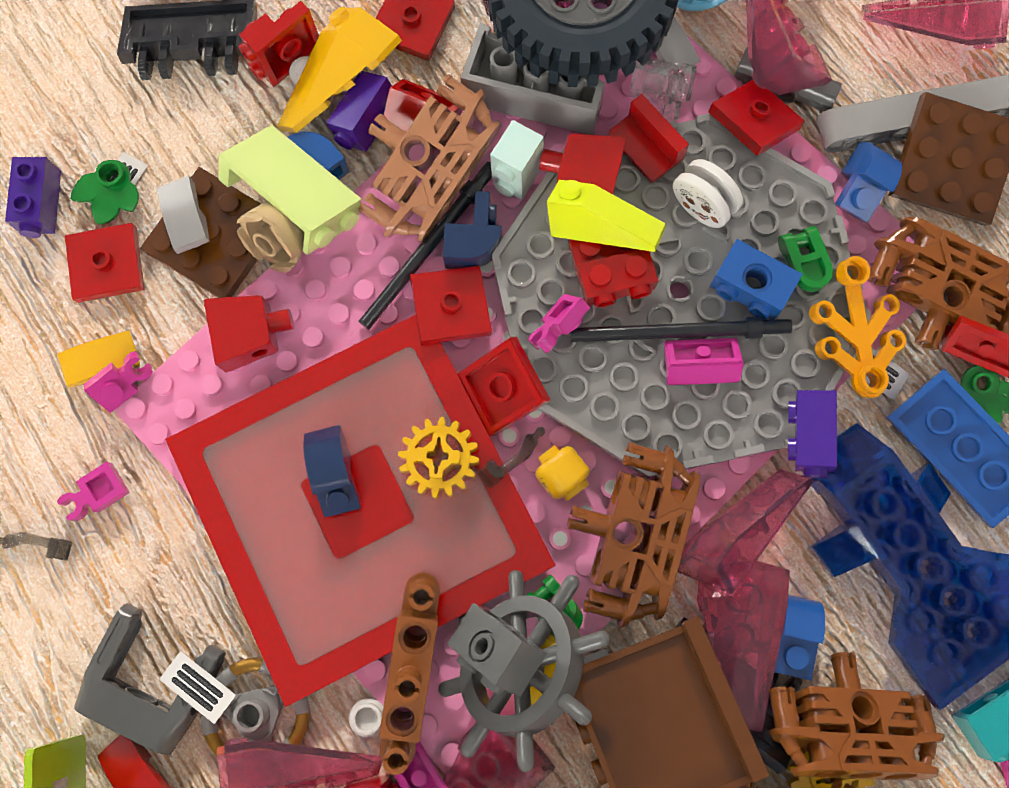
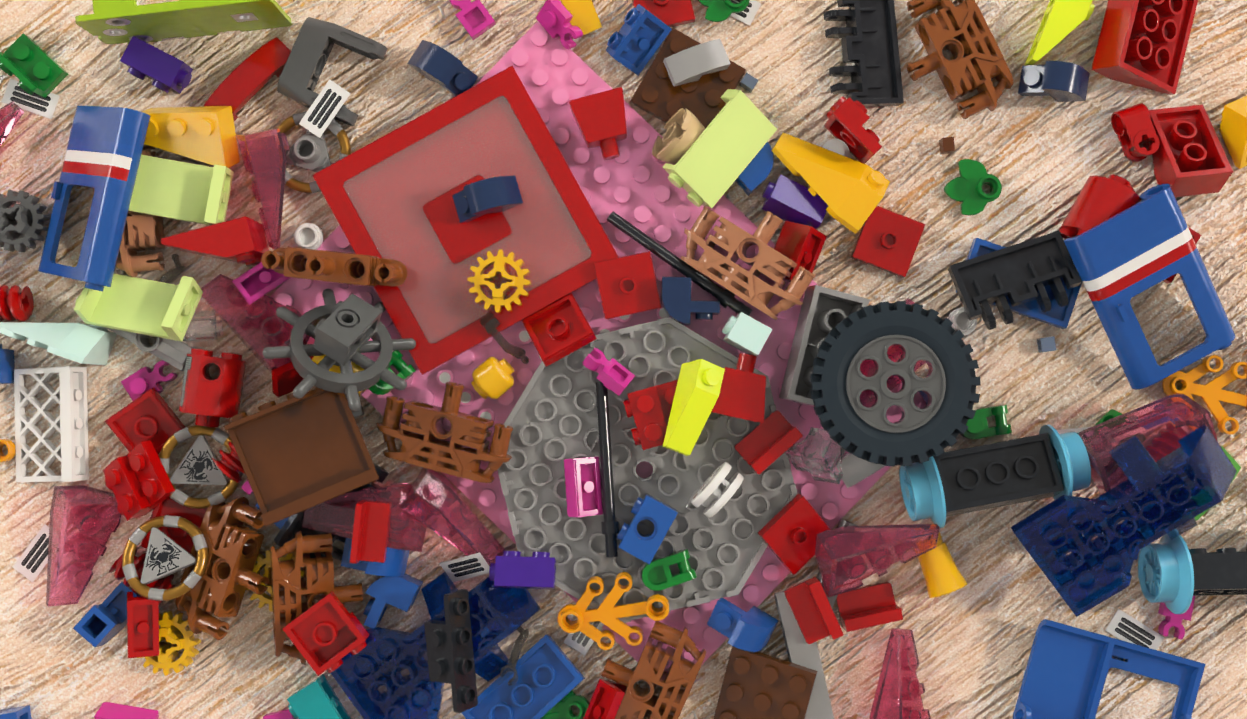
camera: 85 degrees right, 10 degrees up
(147, 287) = (637, 39): none -> blue bracket
(156, 530) = (442, 67): none -> dark blue brick
(212, 164) = (748, 82): none -> sand blue piece
(557, 750) = (285, 379): none -> red tile
(768, 630) = (370, 531): none -> red panel
(806, 514) = (465, 567): none -> white sticker
(842, 45) = (868, 607): none -> red panel
(842, 609) = (396, 591): none -> blue brick
(848, 95) = (813, 611): none -> red panel
(908, 698) = (327, 634): none -> red plate
(919, 455) = (517, 647): none -> clear smoke piece
(923, 529) = (451, 650): none -> black bracket

